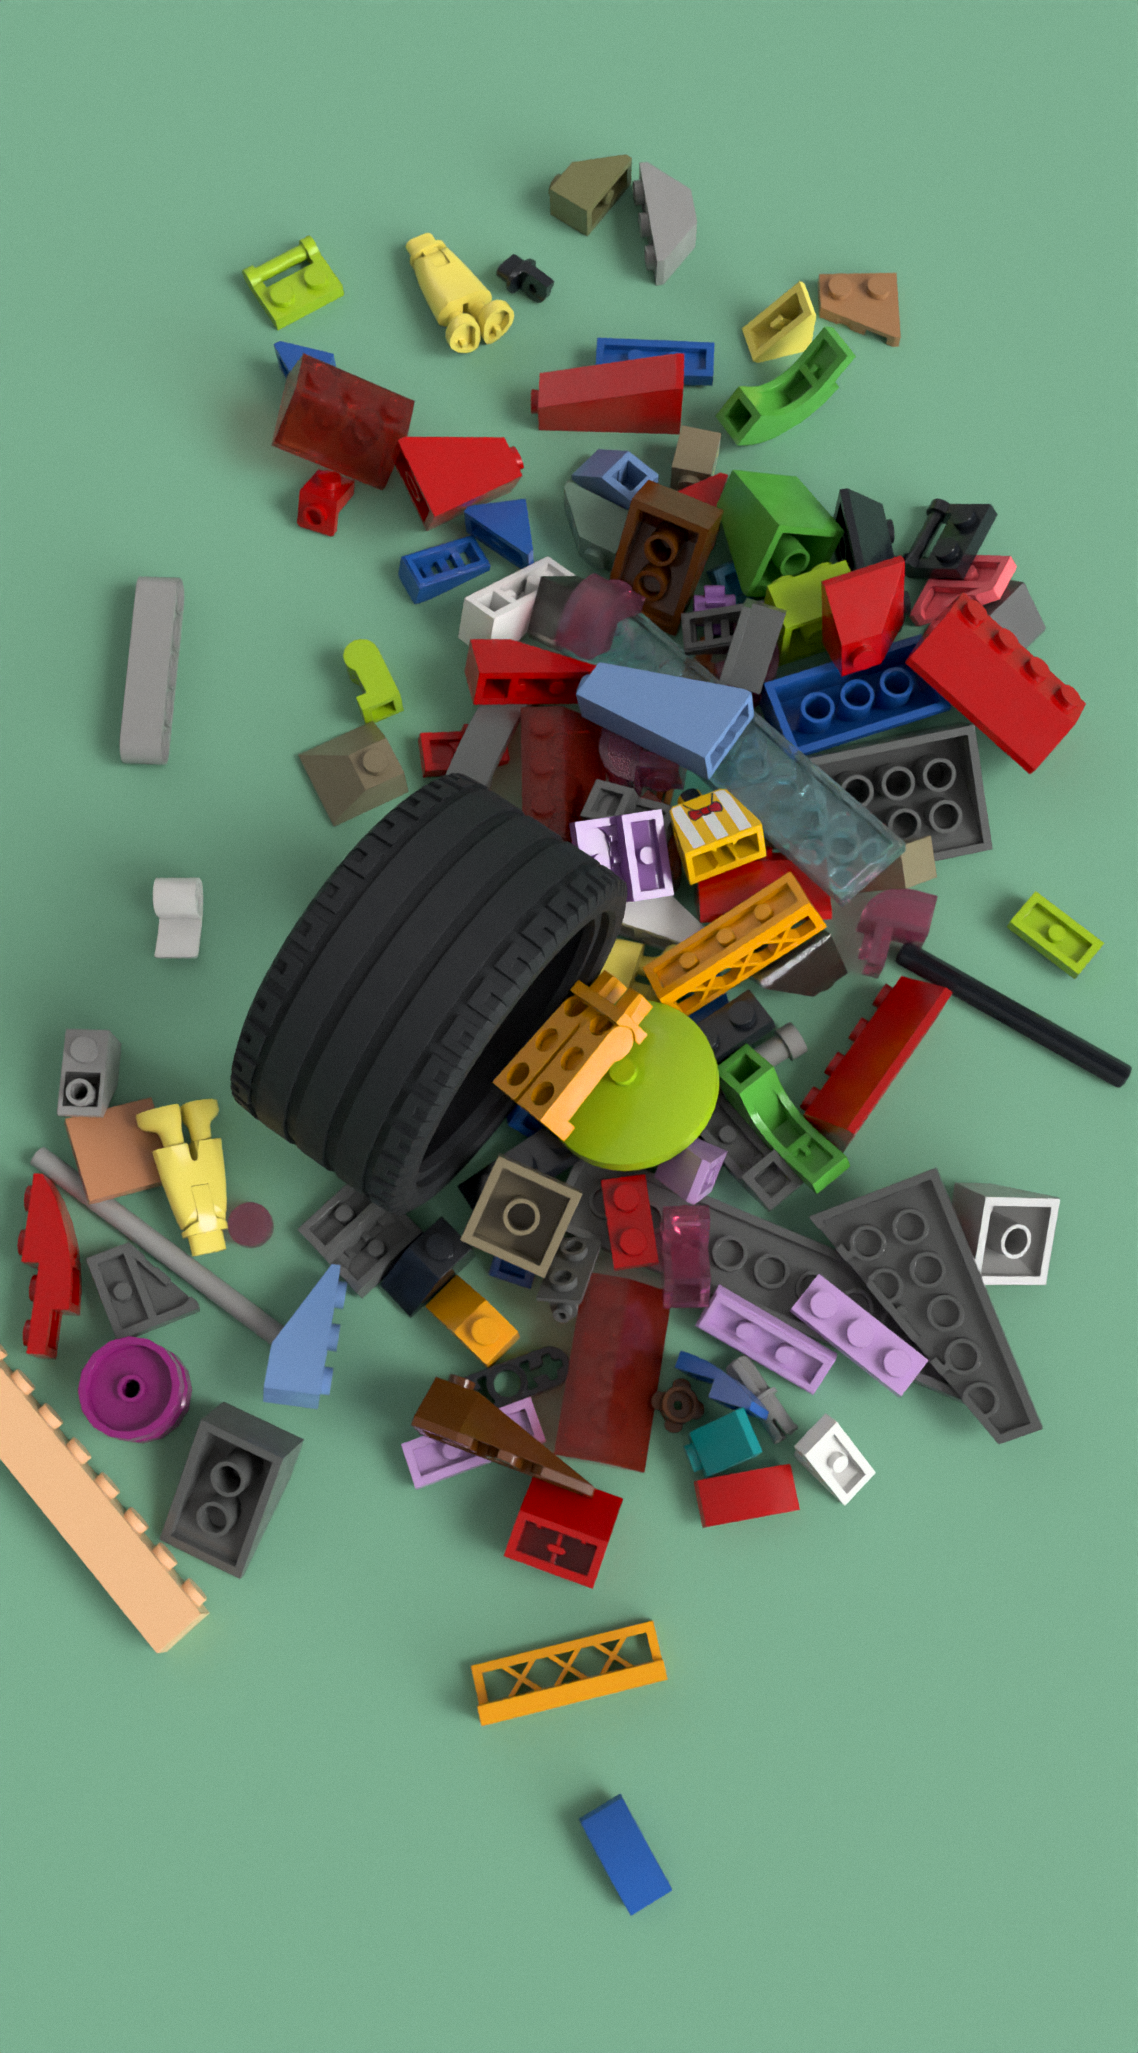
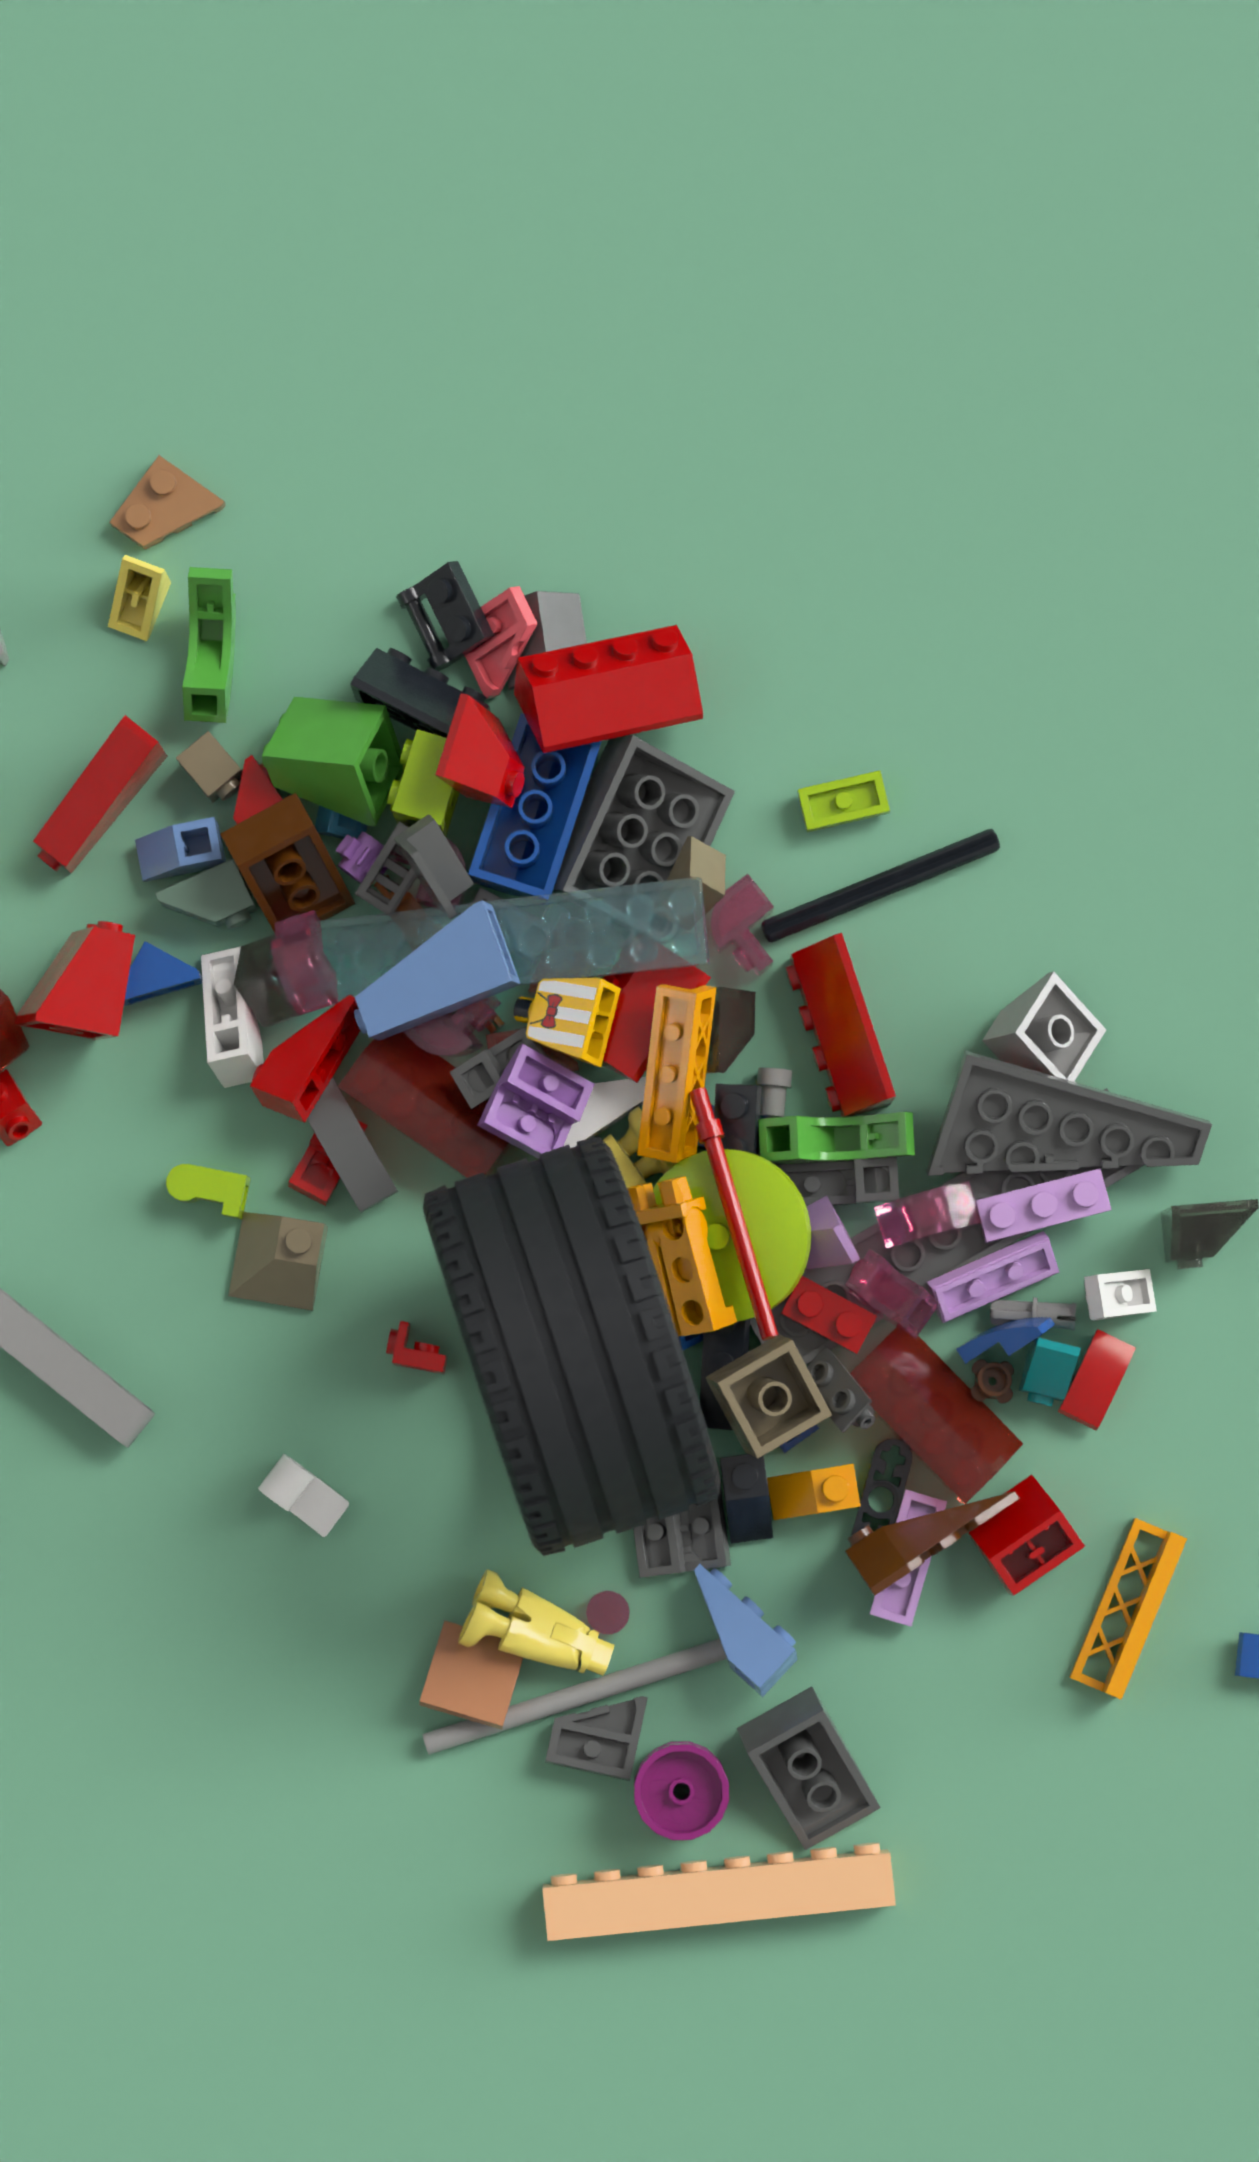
camera: 55 degrees left, 10 degrees up
(53, 1249) = (512, 1781): red slope -> none
(88, 1072) = (393, 1659): light grey slope -> none
(424, 585) = (143, 1087): blue slope -> none
(697, 355) = (86, 728): blue plate -> none
(703, 1006) = (710, 1133): none -> red bar
(777, 1238) = (927, 1214): none -> clear pink brick
(947, 1488) = (1202, 1229): none -> clear smoke slope

